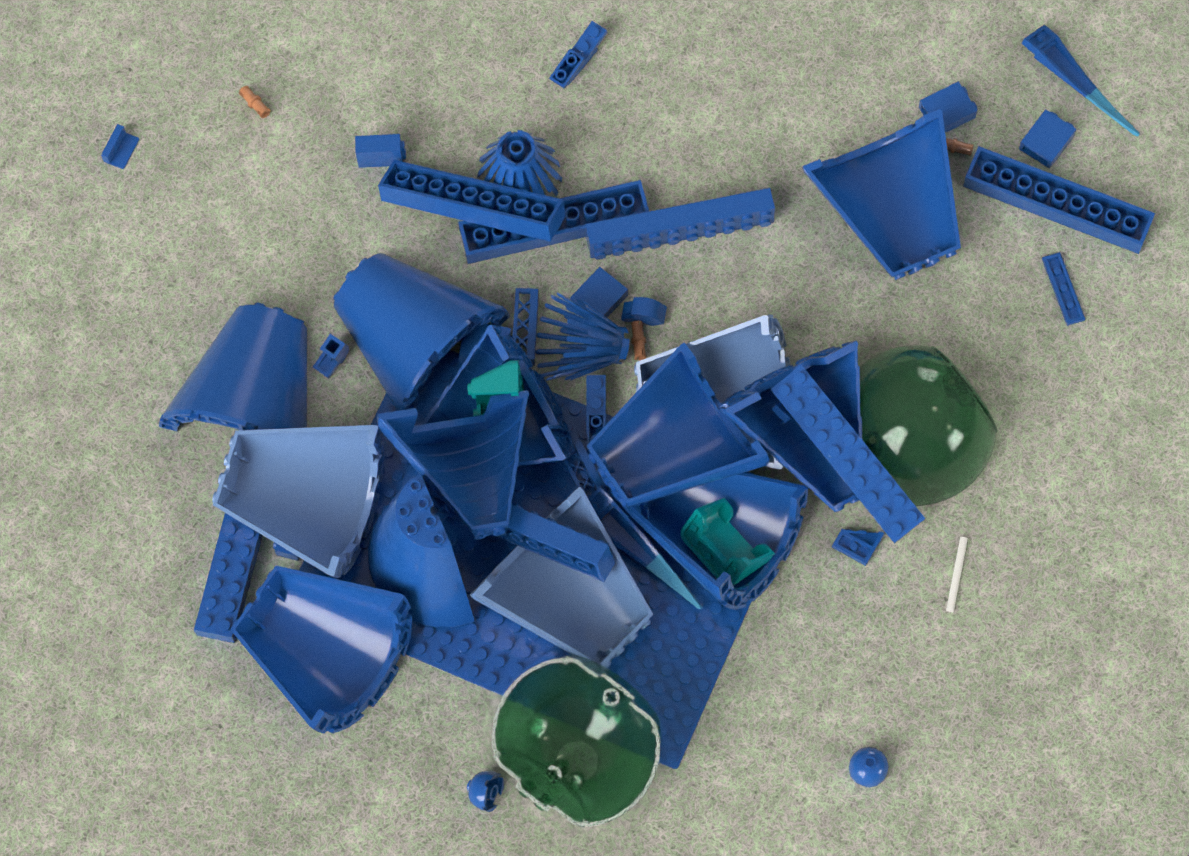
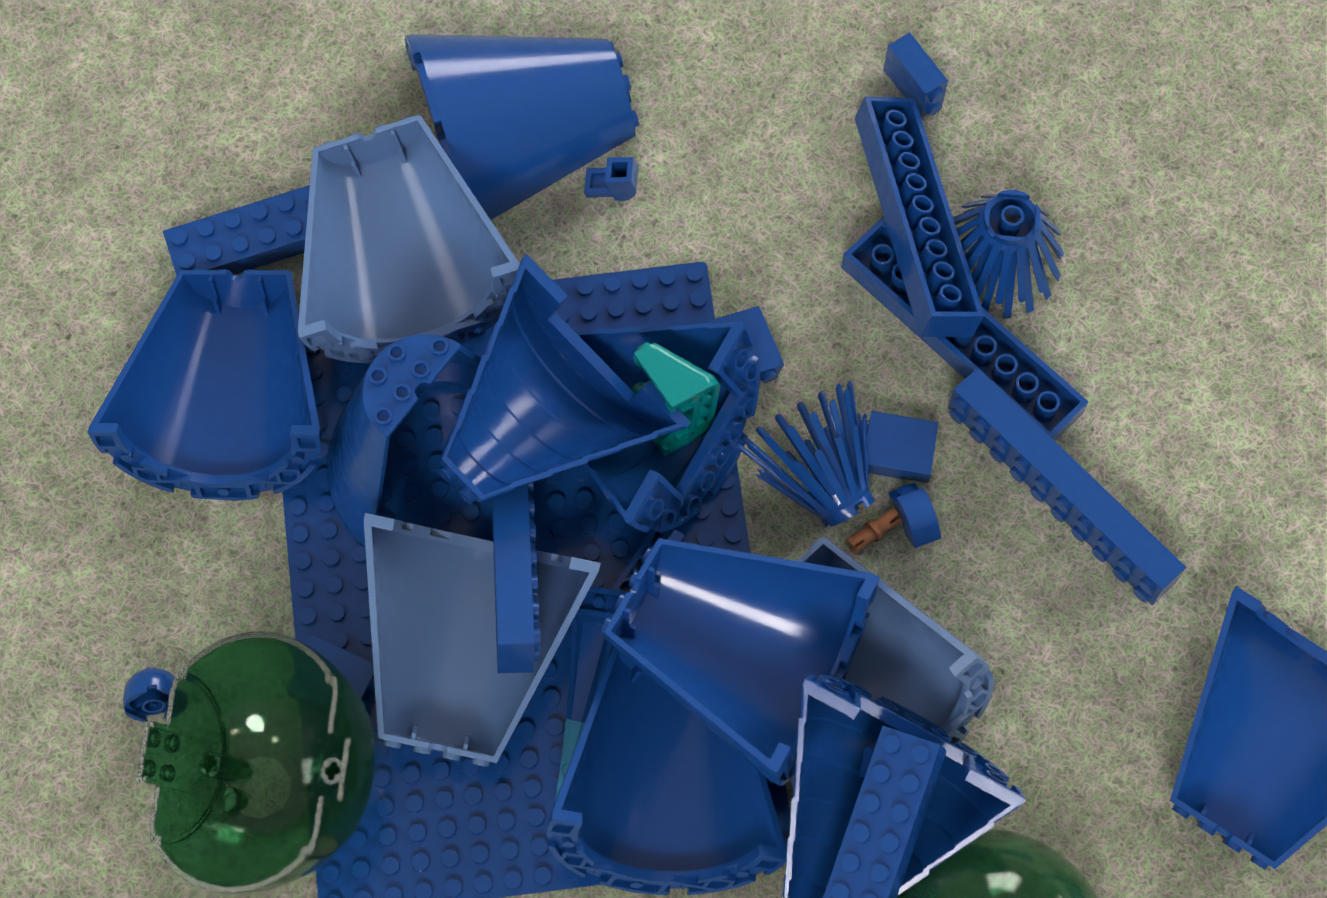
camera: 55 degrees right, 0 degrees up
(407, 321) = (718, 238): blue cone -> none
(532, 319) = (811, 387): blue fence -> none
(579, 55) = (1208, 233): blue slope -> none
(595, 405) = (749, 526): blue slope -> none
(720, 544) = (650, 797): teal windscreen -> none

